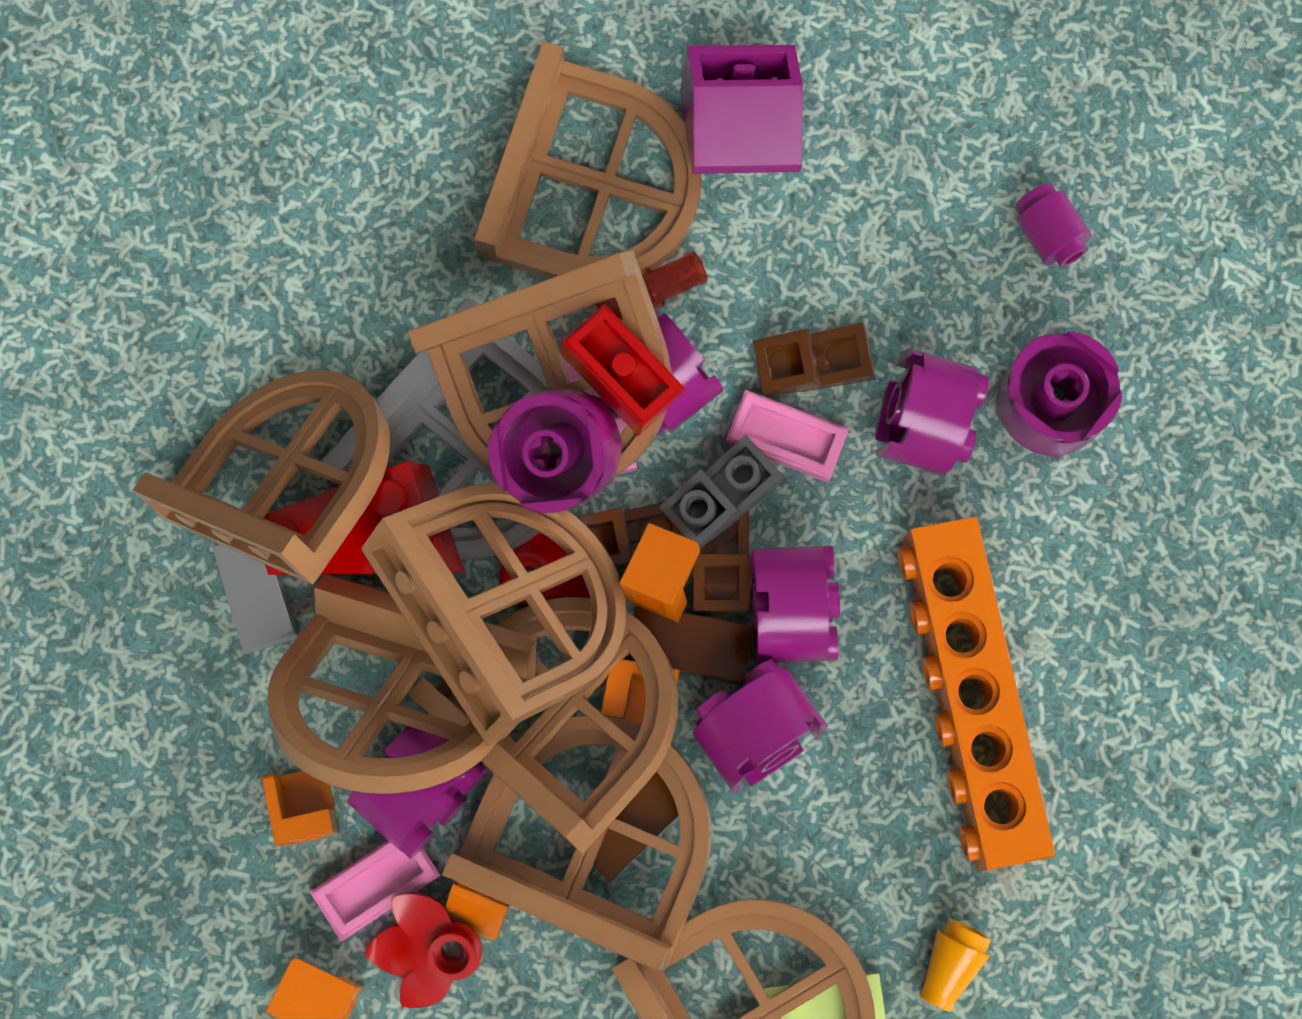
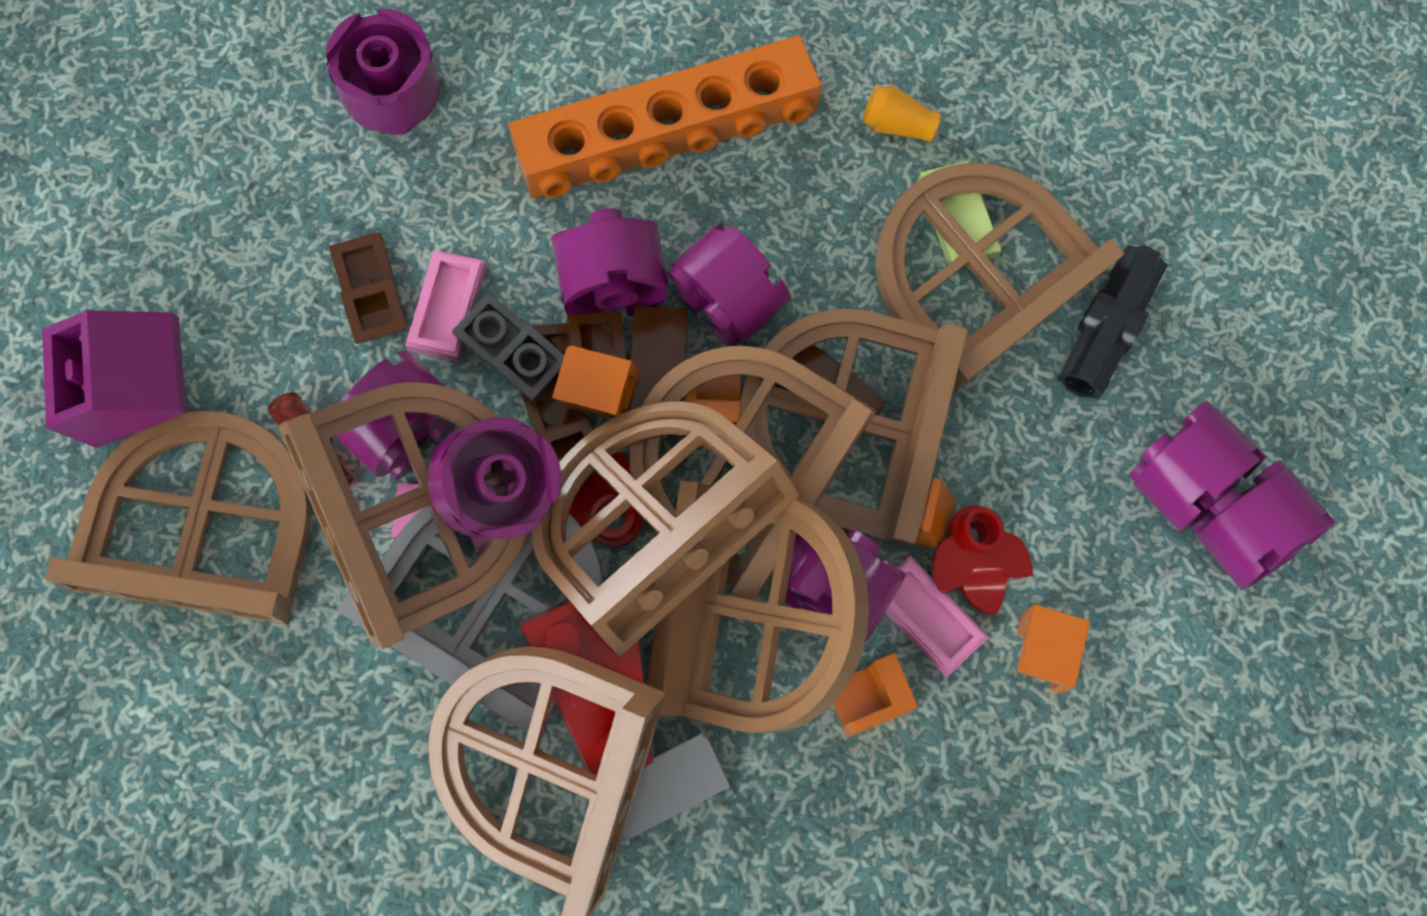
camera: 95 degrees left, 5 degrees down
(621, 369) = (405, 425): red slope -> none
(930, 412) = (412, 172): magenta brick -> none
(1053, 225) = (220, 96): magenta brick -> none

